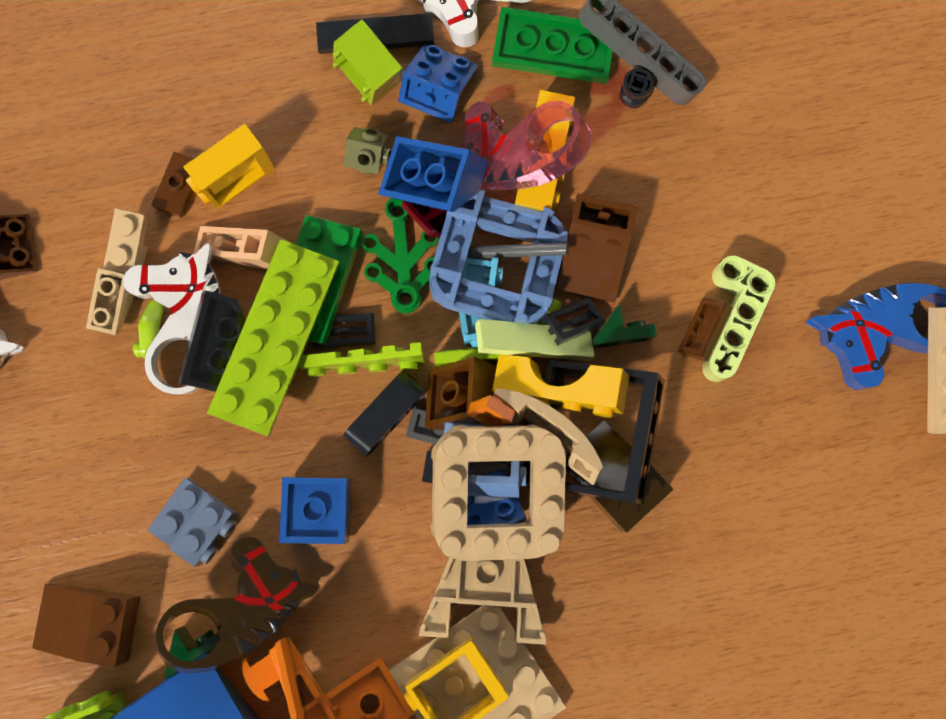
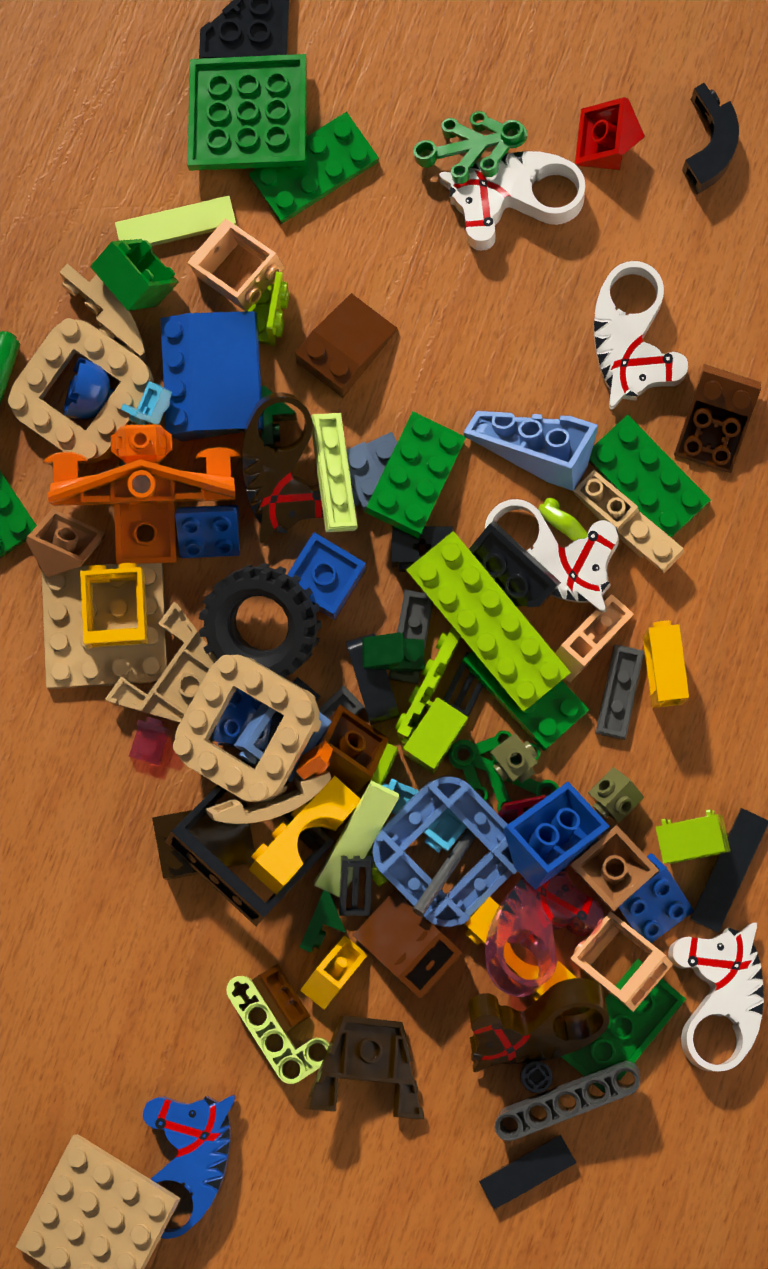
camera: 125 degrees right, 0 degrees up
(66, 282) = (647, 476): none -> green plate
(89, 386) = (544, 447): none -> medium blue wedge
(173, 190) = (681, 610): reddish brown plate -> none
(175, 483) = (415, 474): none -> green plate
(213, 558) = (333, 473): none -> yellowish green tile
(241, 456) = (405, 545): none -> black brick
(275, 200) = (619, 692): none -> dark grey tile
(327, 402) = (413, 624): none -> dark grey tile
(334, 645) = (208, 531): none -> blue bracket
(350, 552) = (251, 581): none -> black tyre
(351, 406) = (393, 653): none -> dark green slope
(385, 247) = (514, 748): none -> olive brick
(403, 324) = (434, 735): none -> lime container
(429, 111) = (614, 868): none -> medium nougat slope
(509, 105) = (642, 980): none -> light nougat window
(557, 579) = (149, 741): none -> clear pink bracket
(591, 90) = (540, 1030): none -> dark brown animal
(656, 297) = (334, 972): none -> yellow slope
(707, 232) = (367, 1052): none -> dark brown wing
(714, 56) = (527, 1171): none -> black tile

